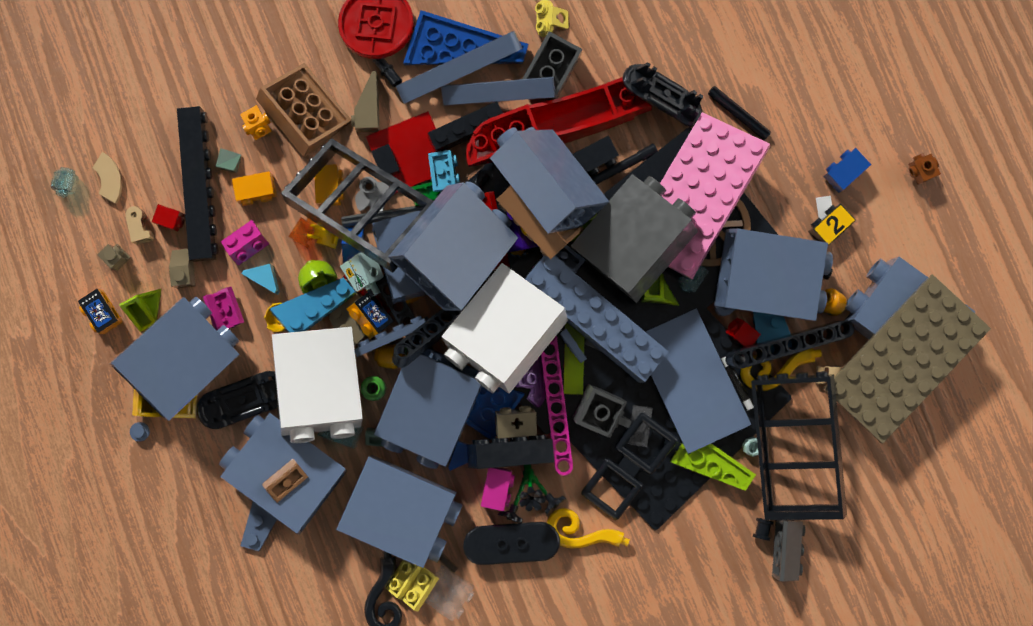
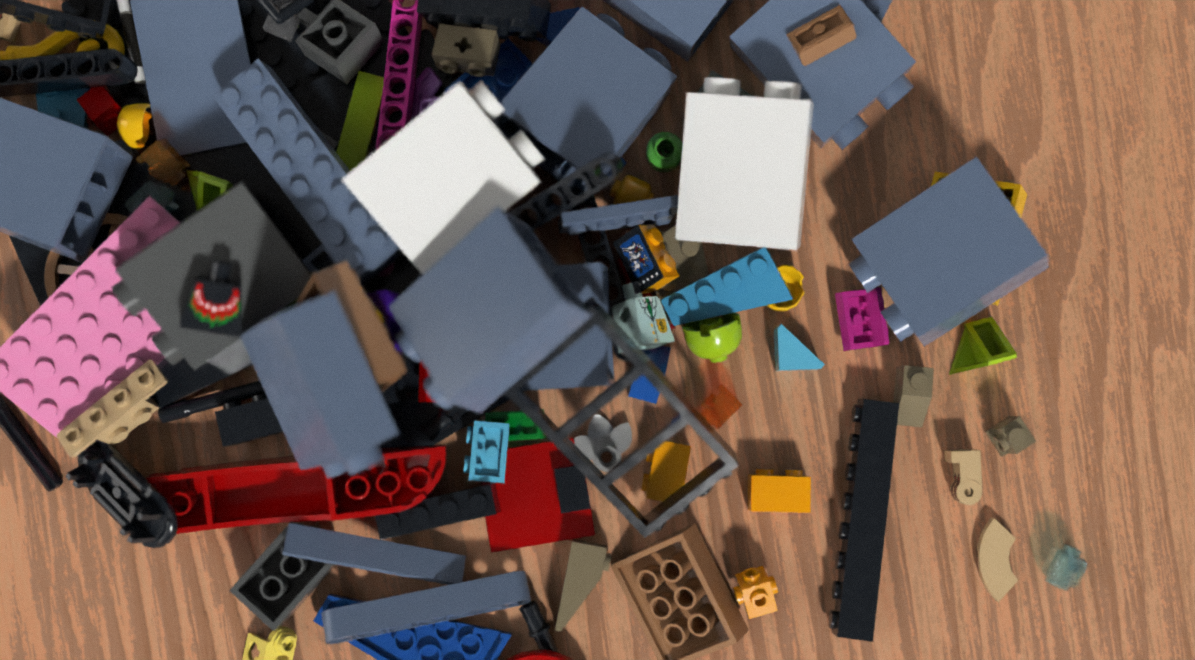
camera: 165 degrees left, 0 degrees up
(100, 311) = (1046, 358): brick -> none
(139, 431) = (1020, 169): sand blue plate -> none
(168, 218) = (917, 475): red brick -> none
(228, 160) = (809, 544): sand green slope -> none
(238, 401) = (865, 180): black piece -> none
(244, 242) = (810, 413): dark pink bracket -> none
(323, 236) = (692, 392): yellow plate -> none
(352, 220) = (613, 408): dark grey axle -> none
(371, 439) = (682, 86): sand green slope -> none
(573, 347) = (353, 137): sand blue tile -> none
(626, 214) = (215, 303): none -> black torso
(680, 141) = (115, 412): none -> tan bracket
(691, 305) = (164, 162): none -> clear orange brick
(719, 326) = (134, 125): none -> yellow hair

